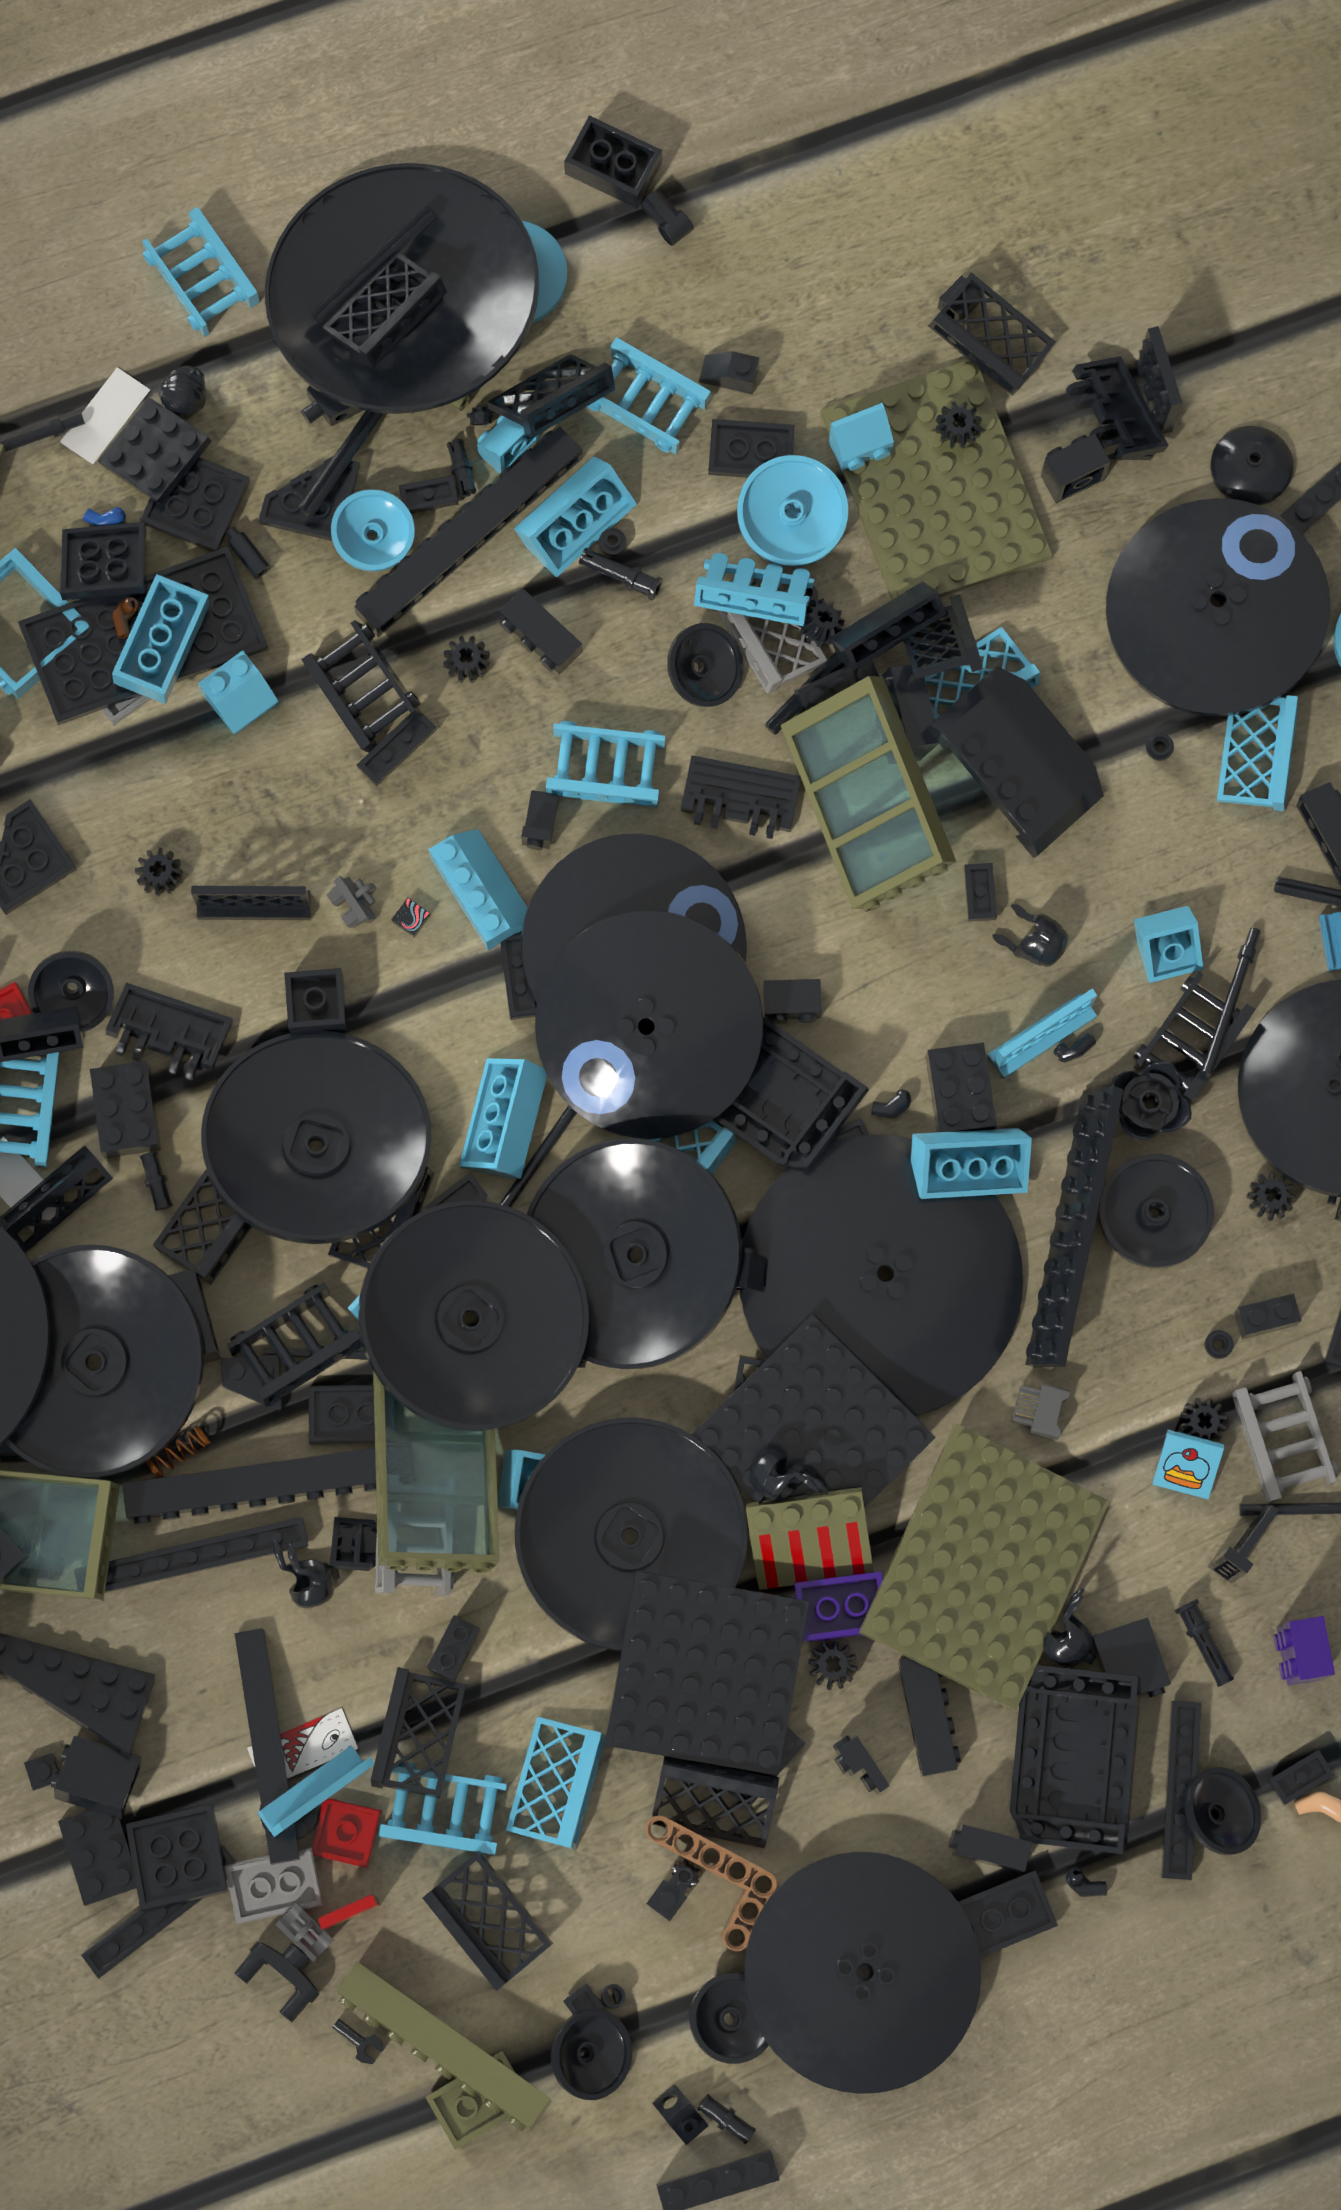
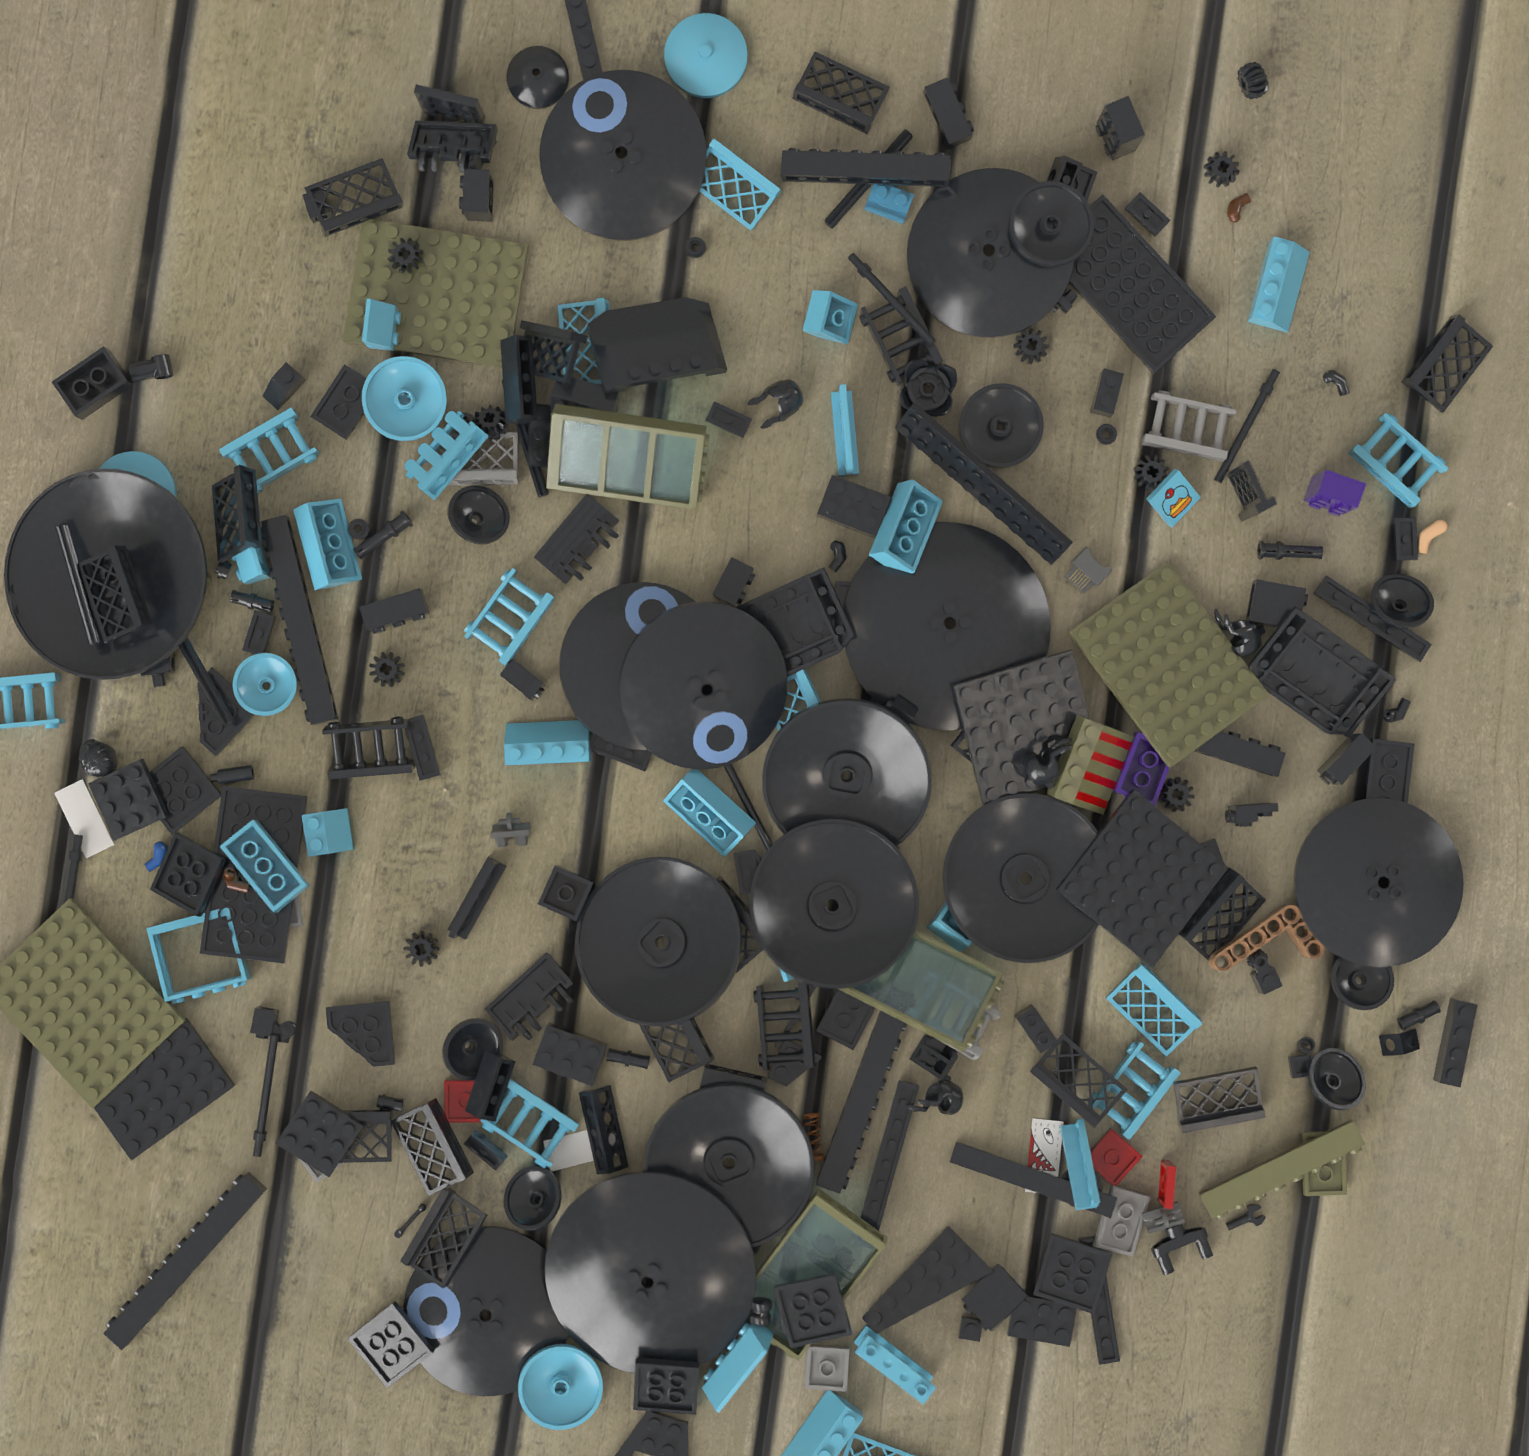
camera: 60 degrees left, 10 degrees up
(411, 917) = (541, 799): tile -> none
(1076, 1051) = (867, 414): black arm -> none

